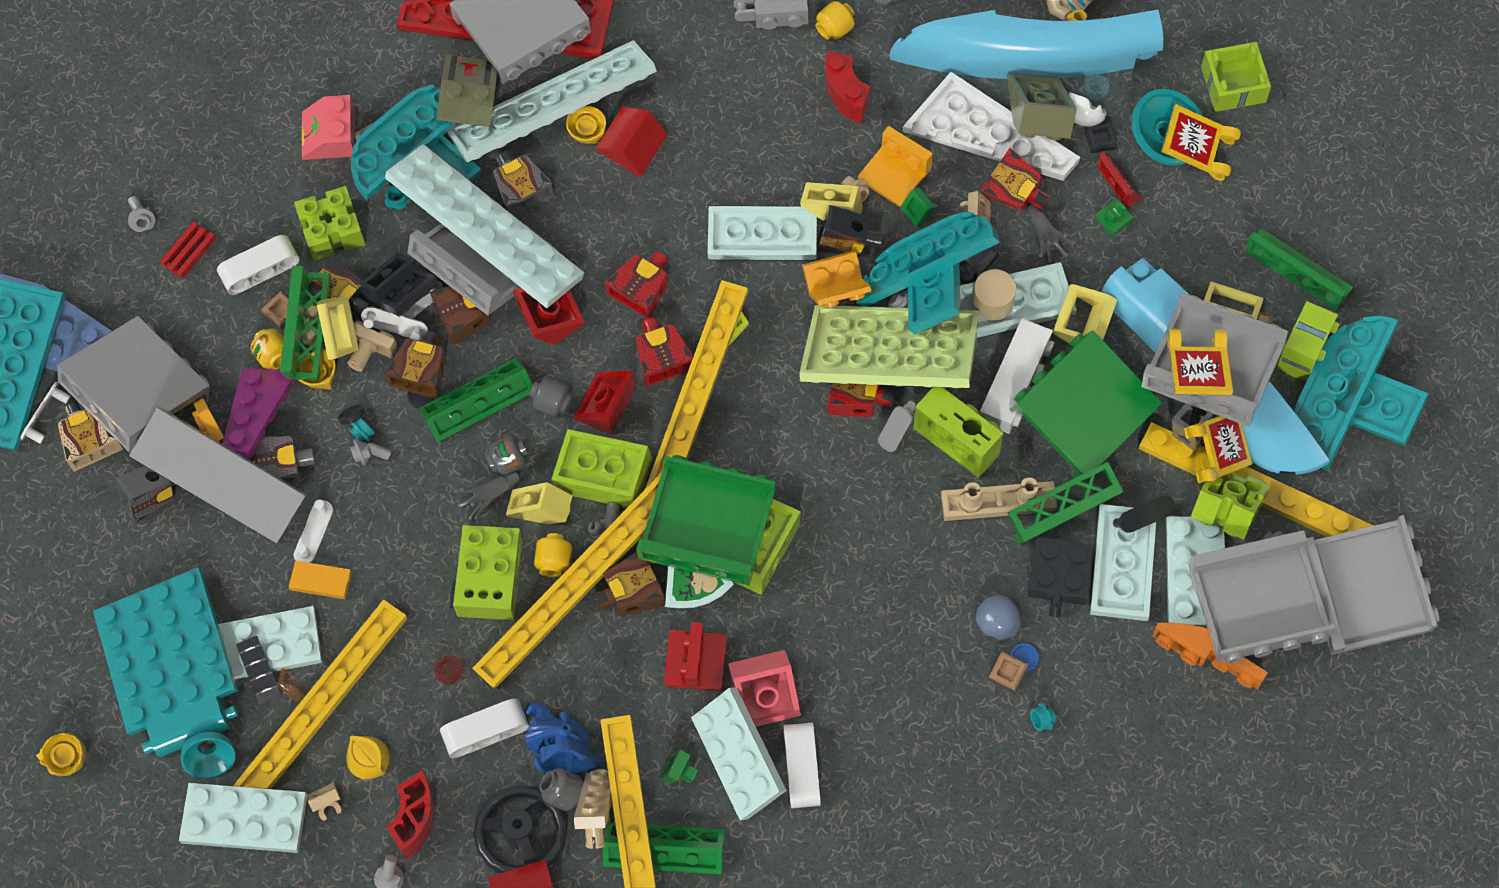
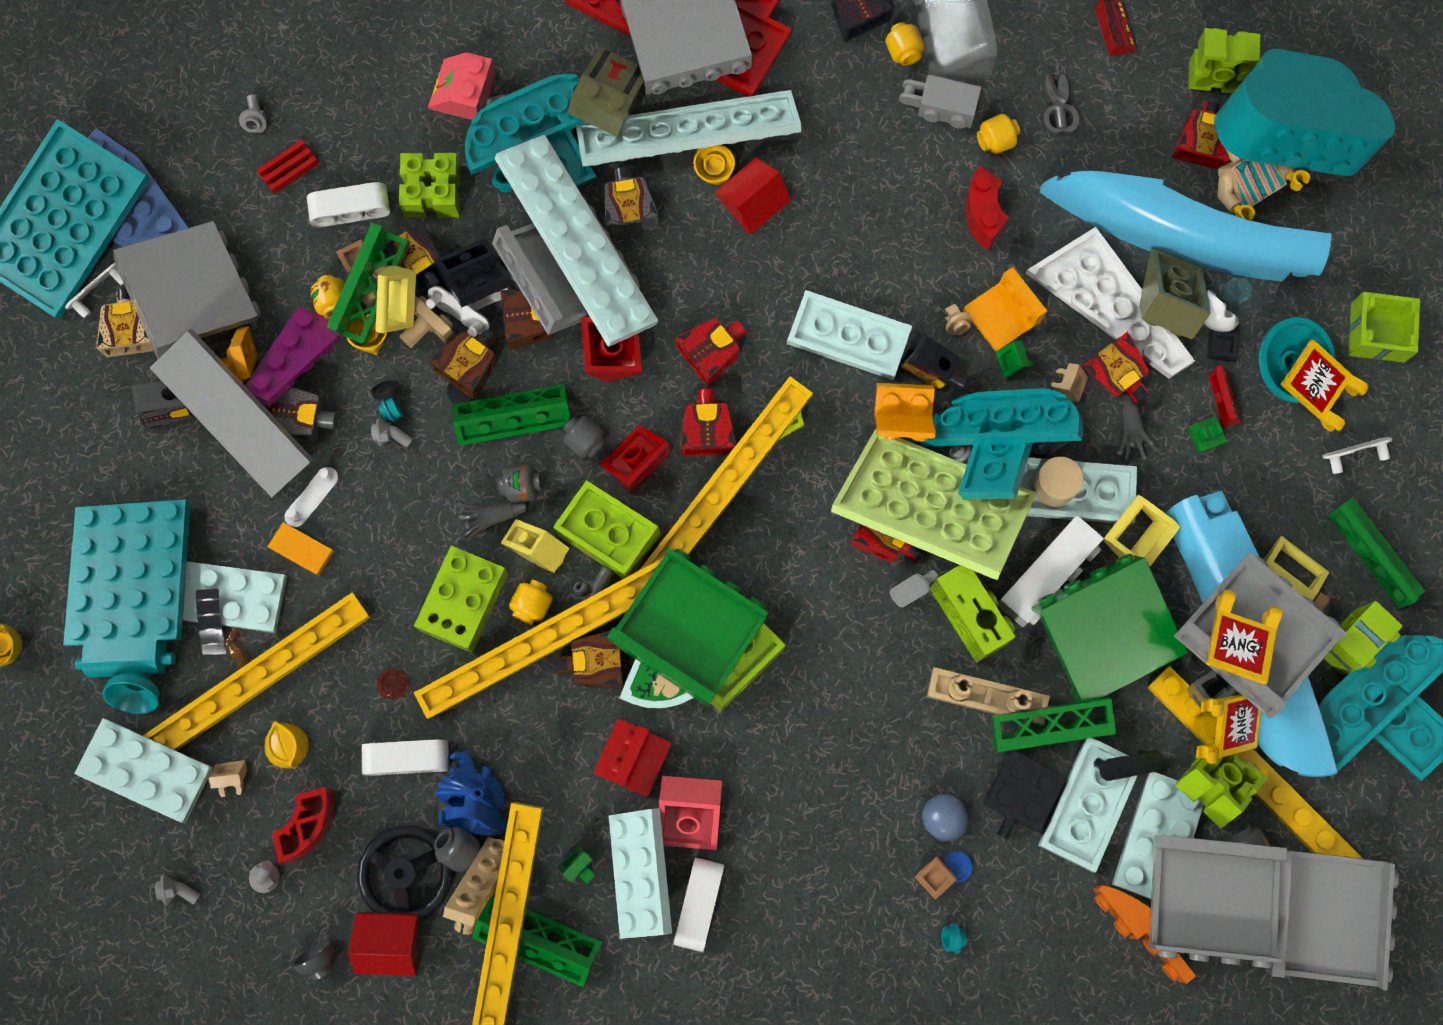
camera: 15 degrees right, 10 degrees up
(819, 196) = (920, 319): light yellow slope -> none
(1235, 203) = (1380, 443): none -> white piece

